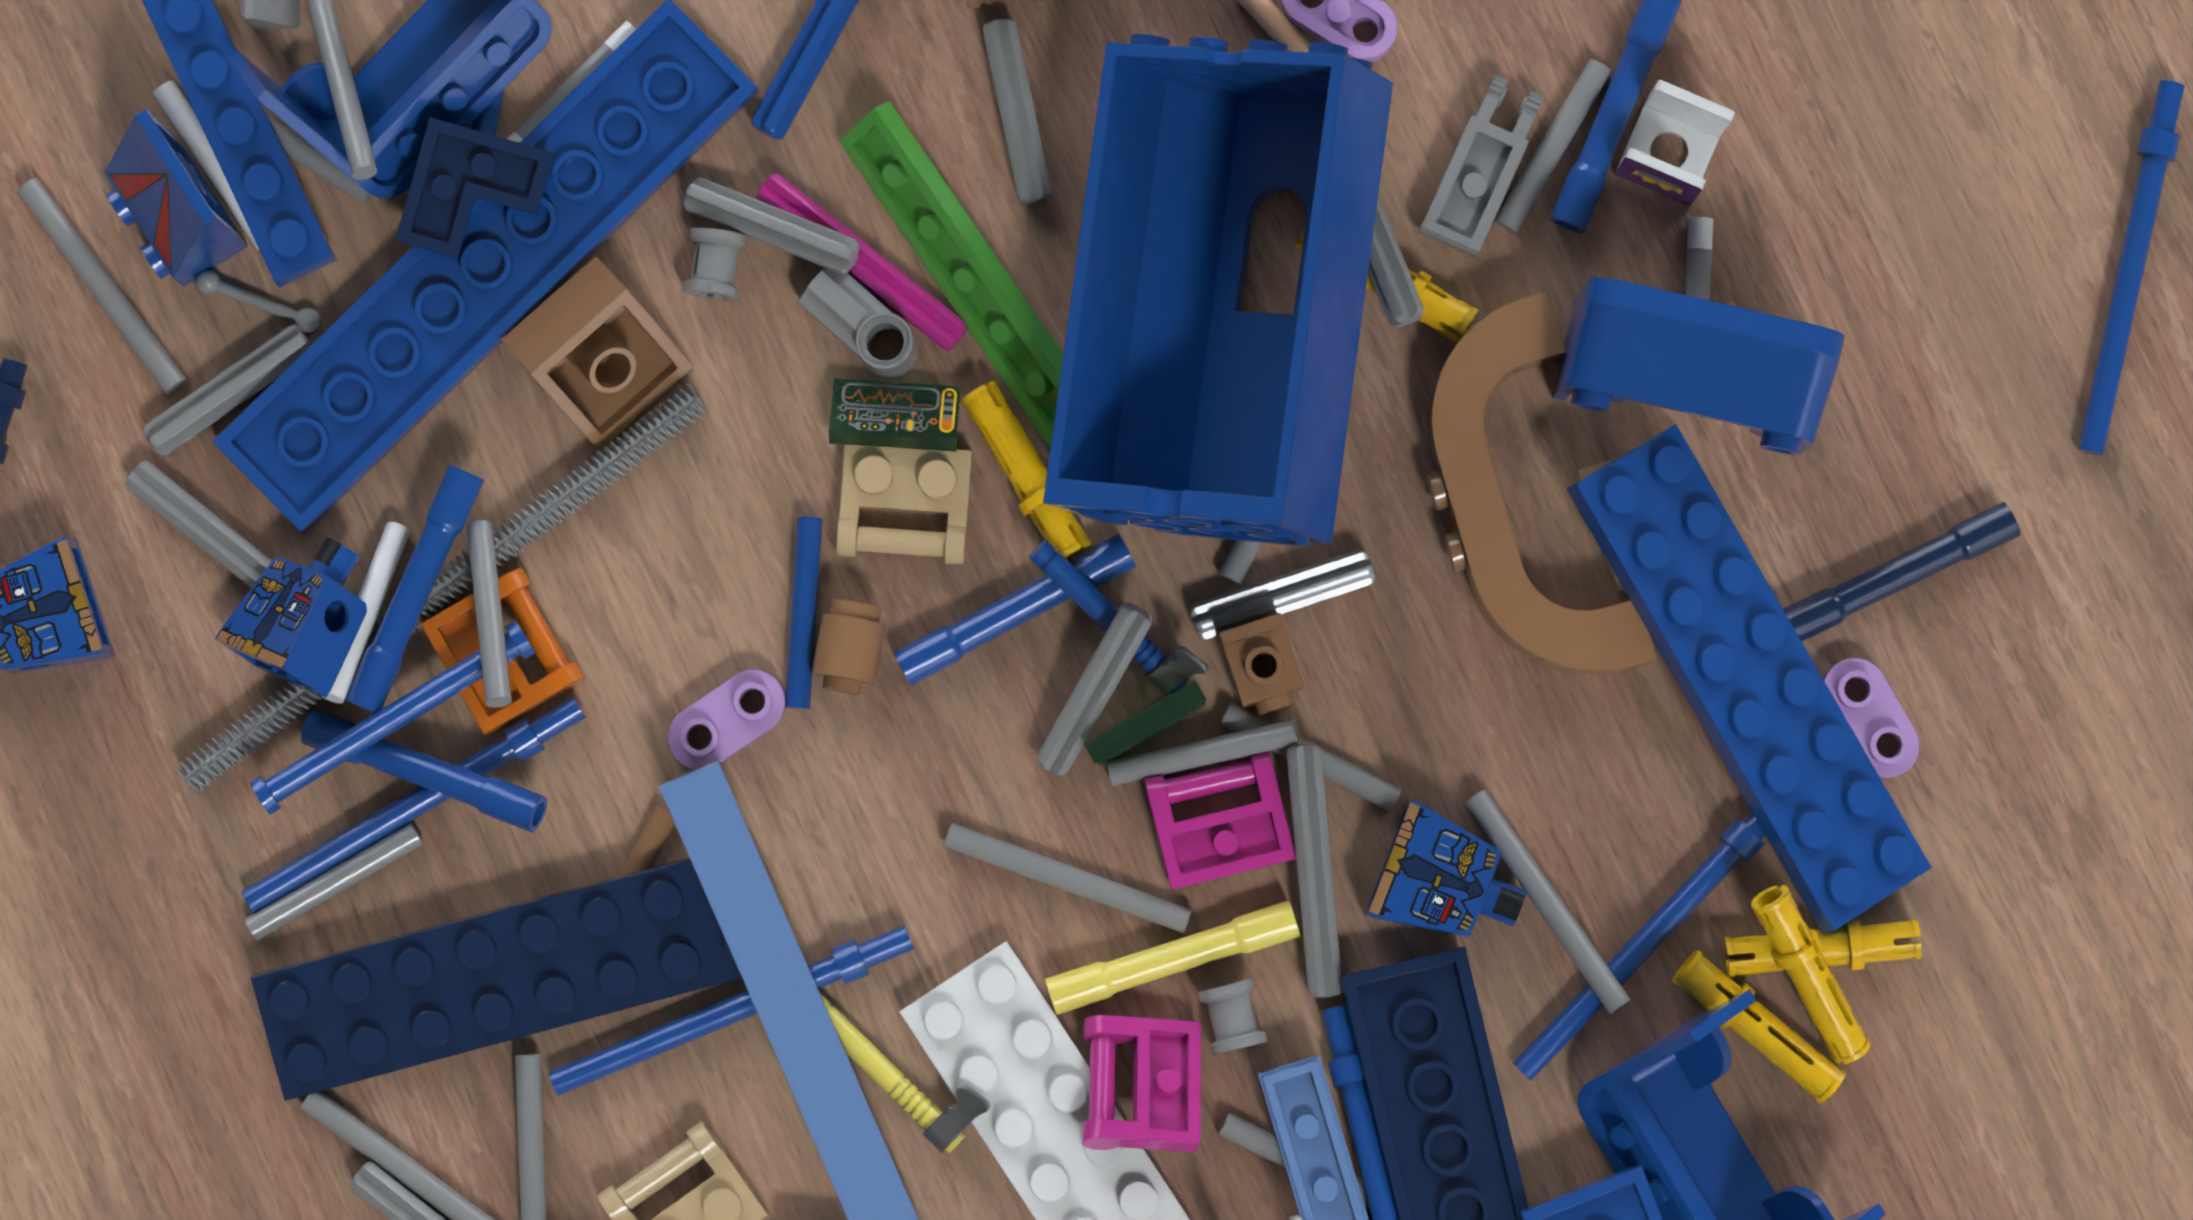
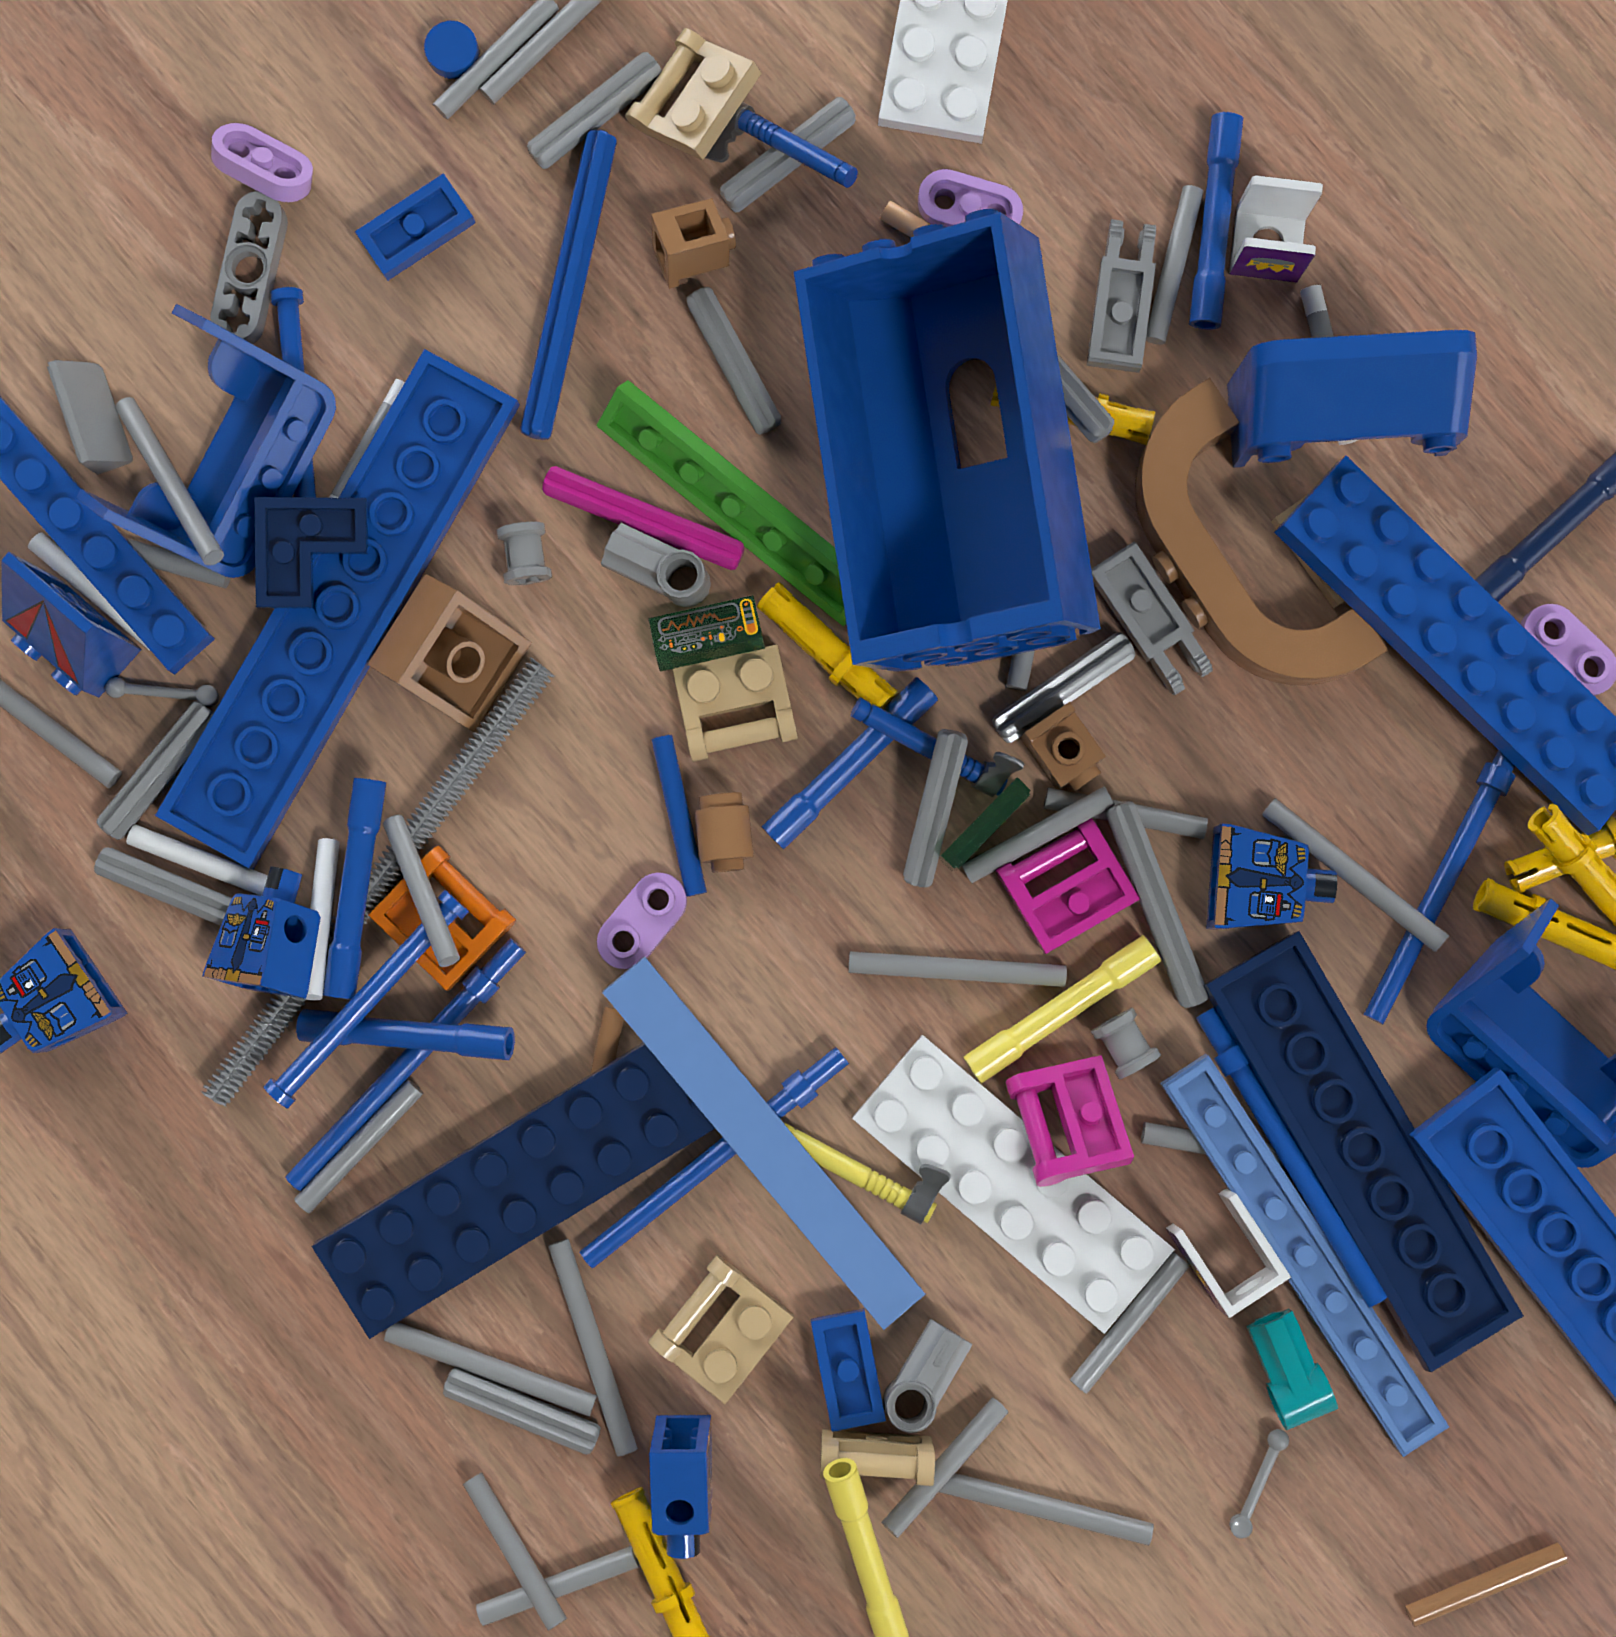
camera: 10 degrees left, 0 degrees up
(245, 505) = (196, 859): none -> white bar
(771, 225) = (562, 508): light grey axle -> none
(1402, 537) = (1149, 614): none -> light grey hinge

